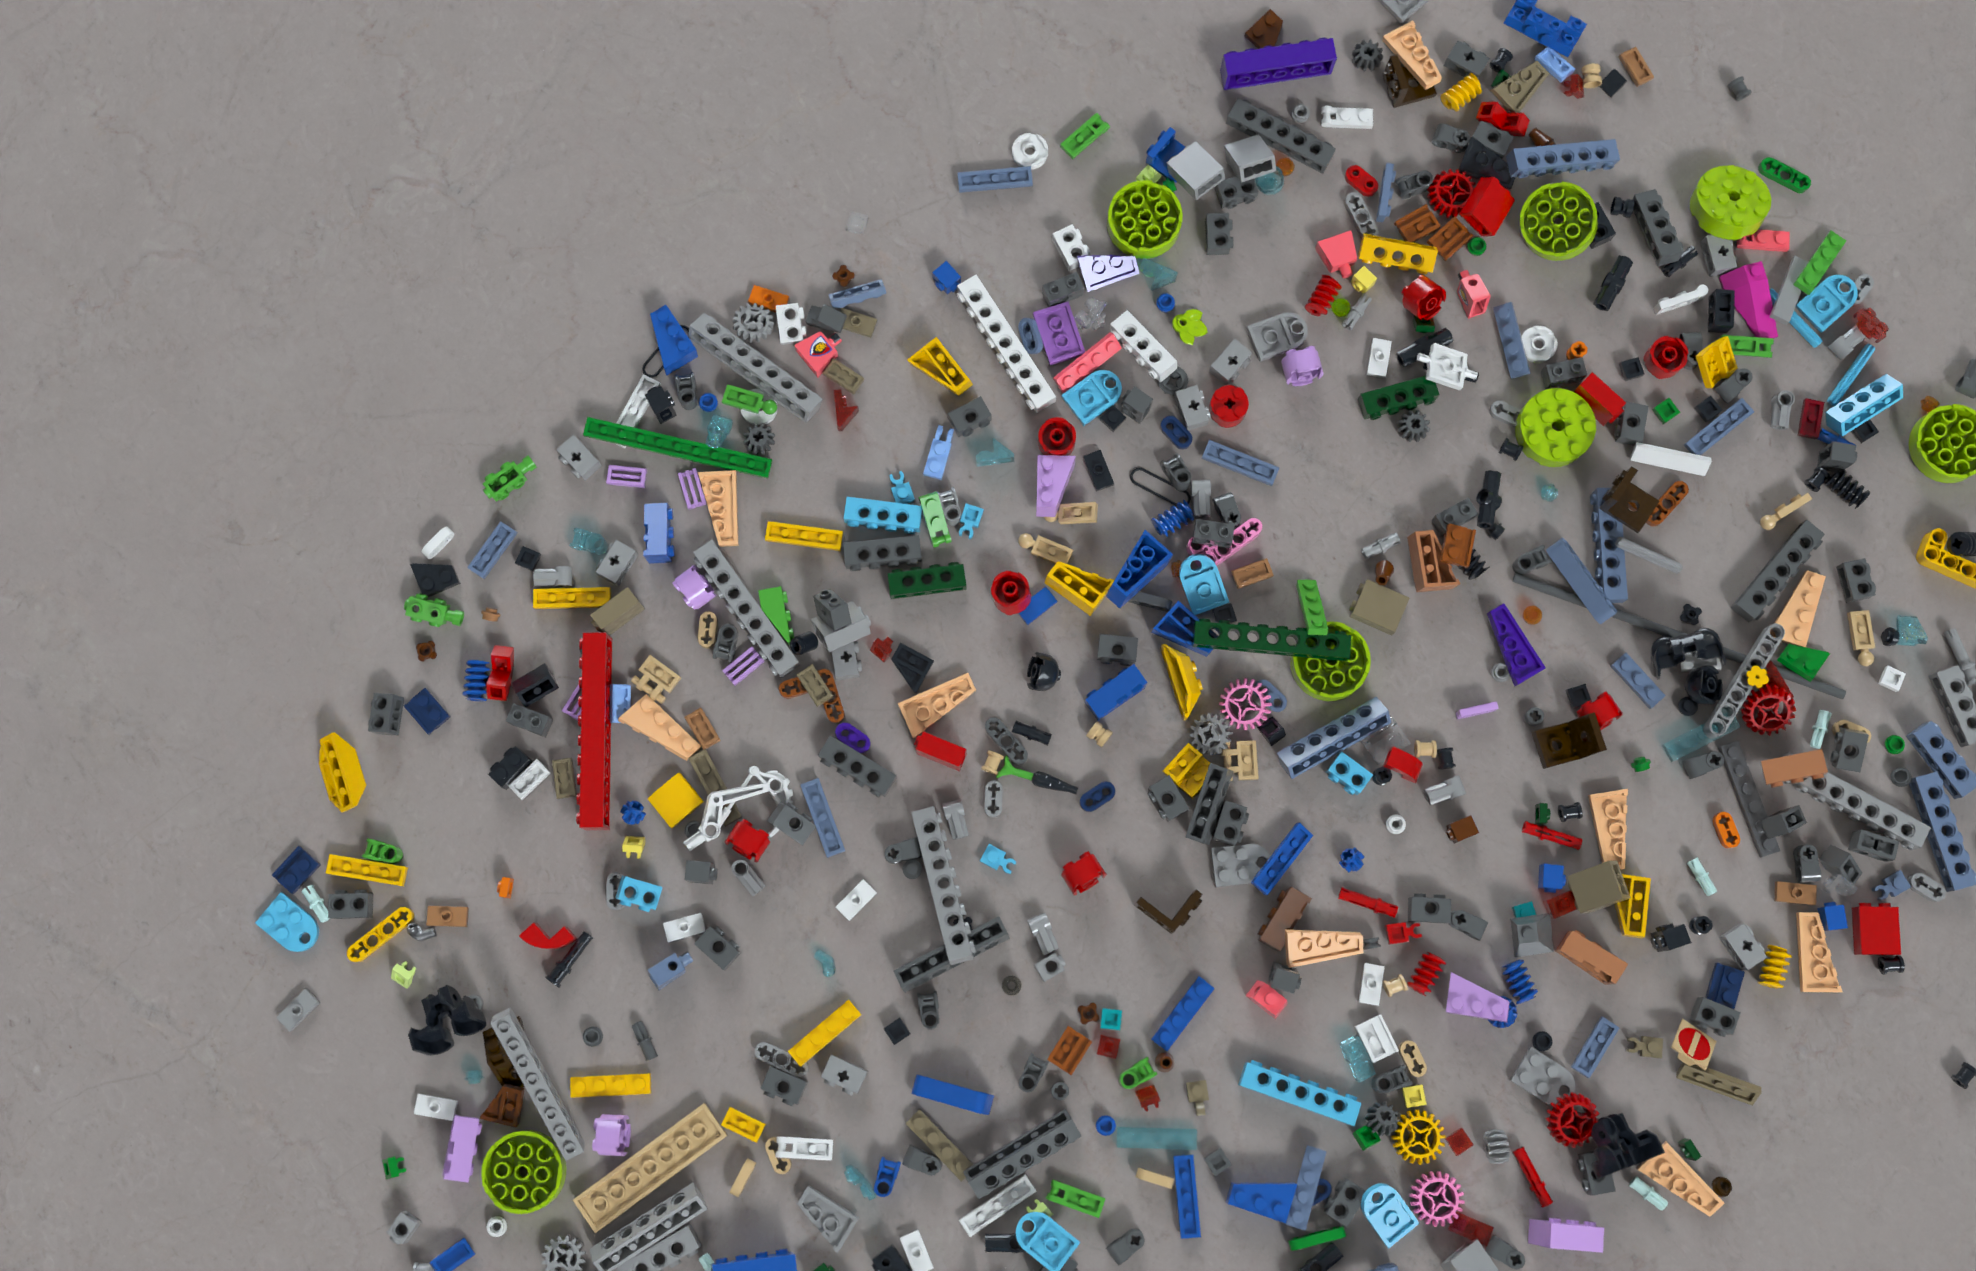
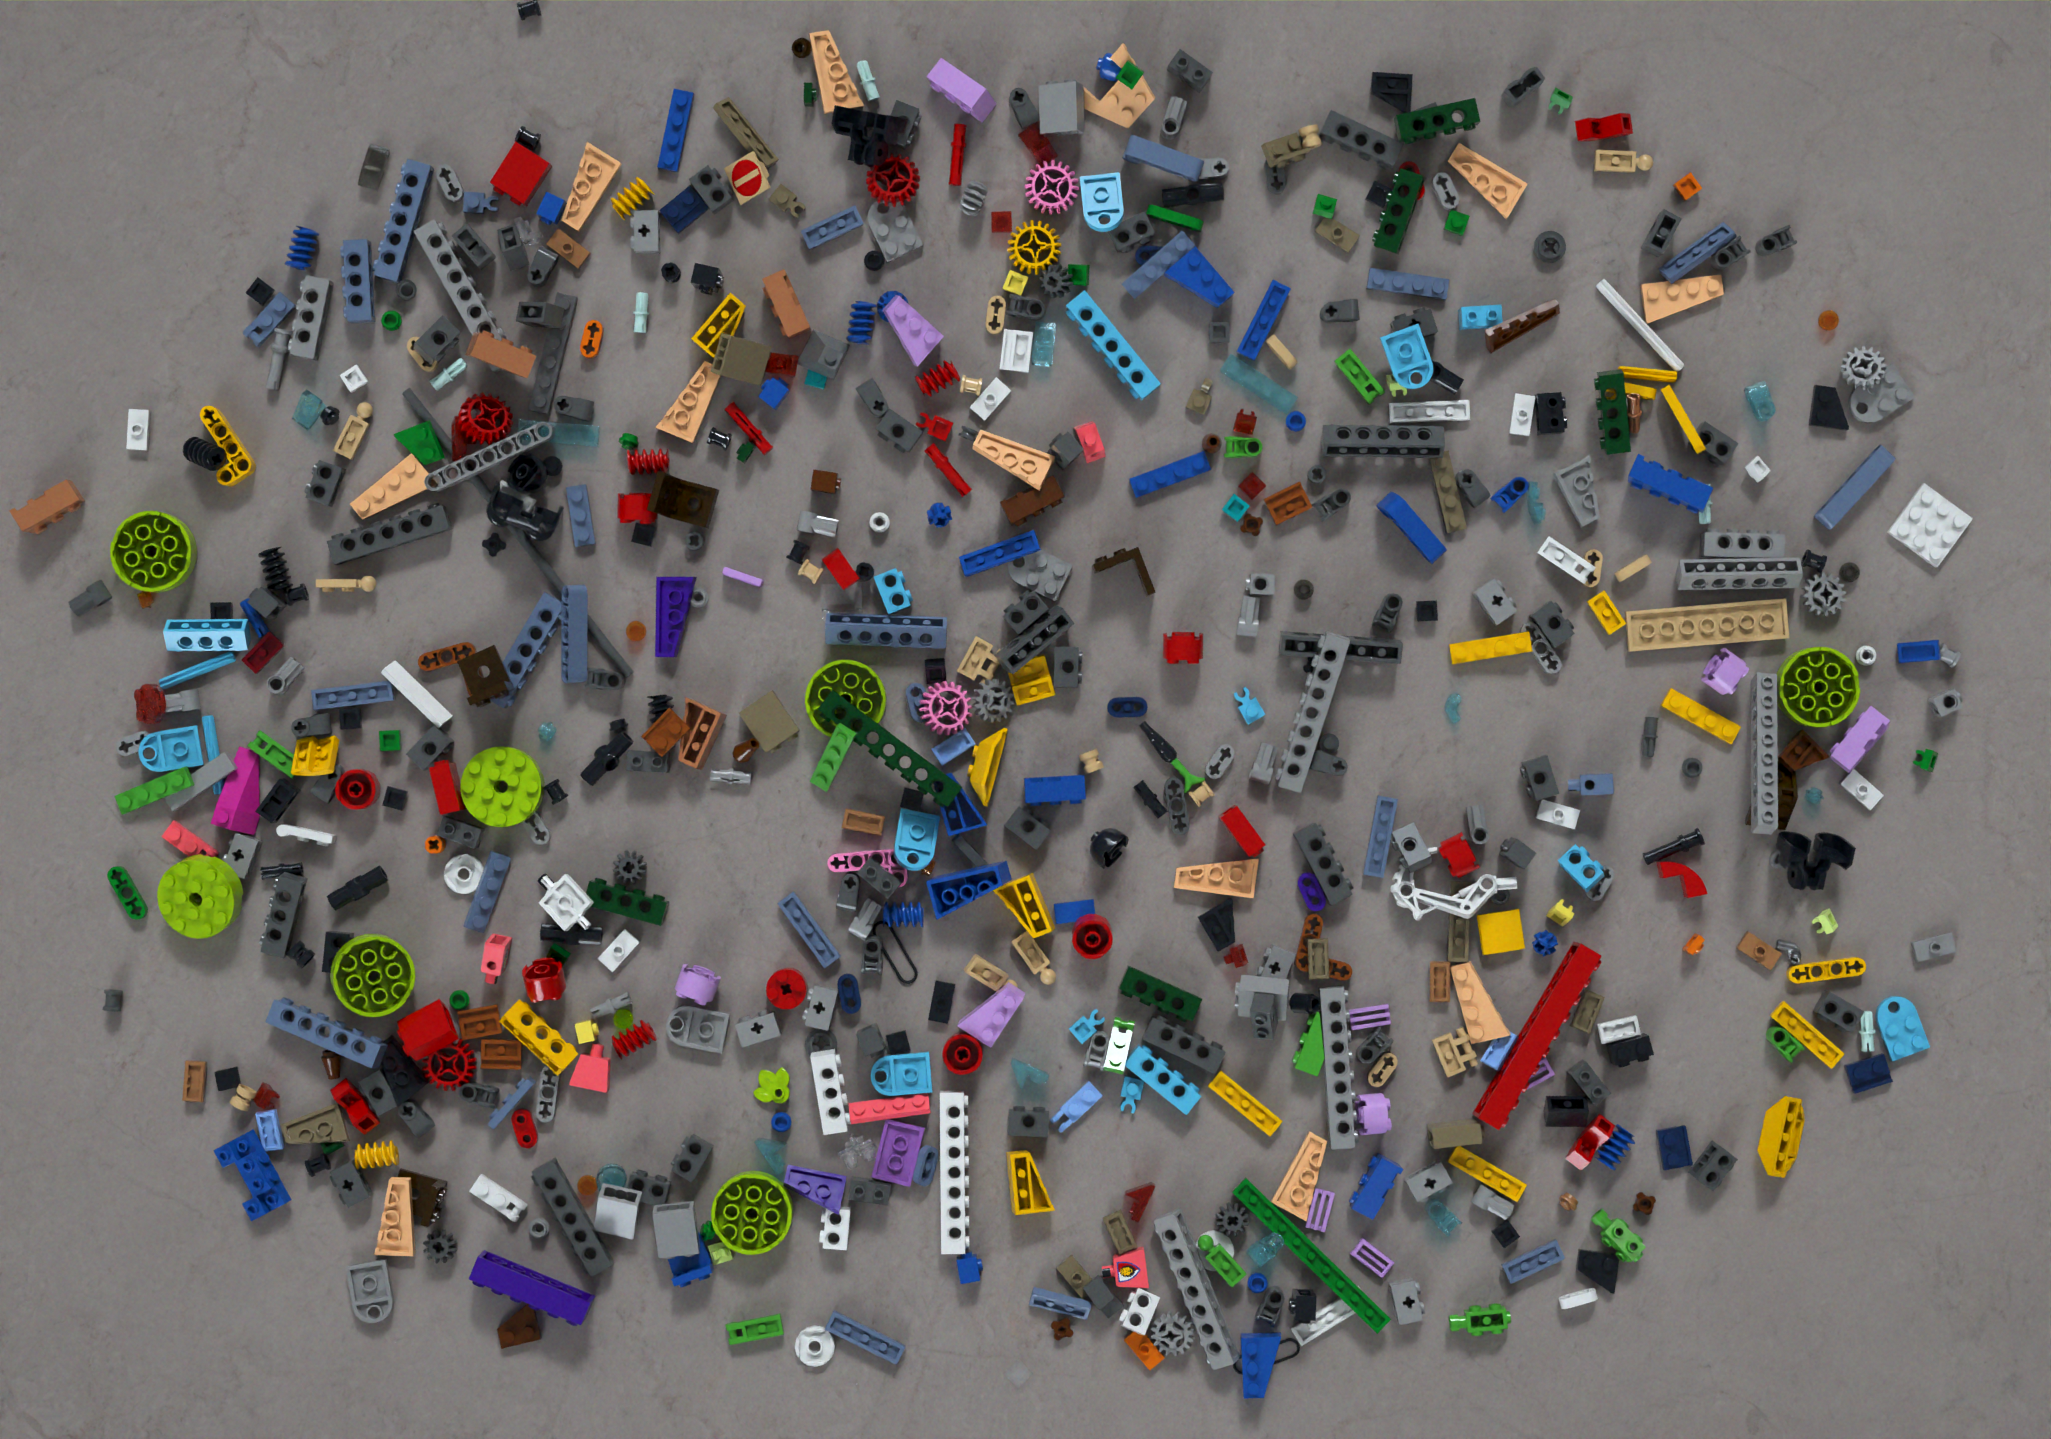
camera: 150 degrees left, 10 degrees up
(856, 899) = (1393, 746): white plate -> none
(1218, 678) = (953, 746): none -> light blue plate
(1614, 755) = (648, 462): none -> red piece
(1648, 555) = (497, 619): light grey axle -> none
(1761, 677) = (475, 448): yellow plant -> none
(1776, 1049) = (675, 130): none -> blue plate

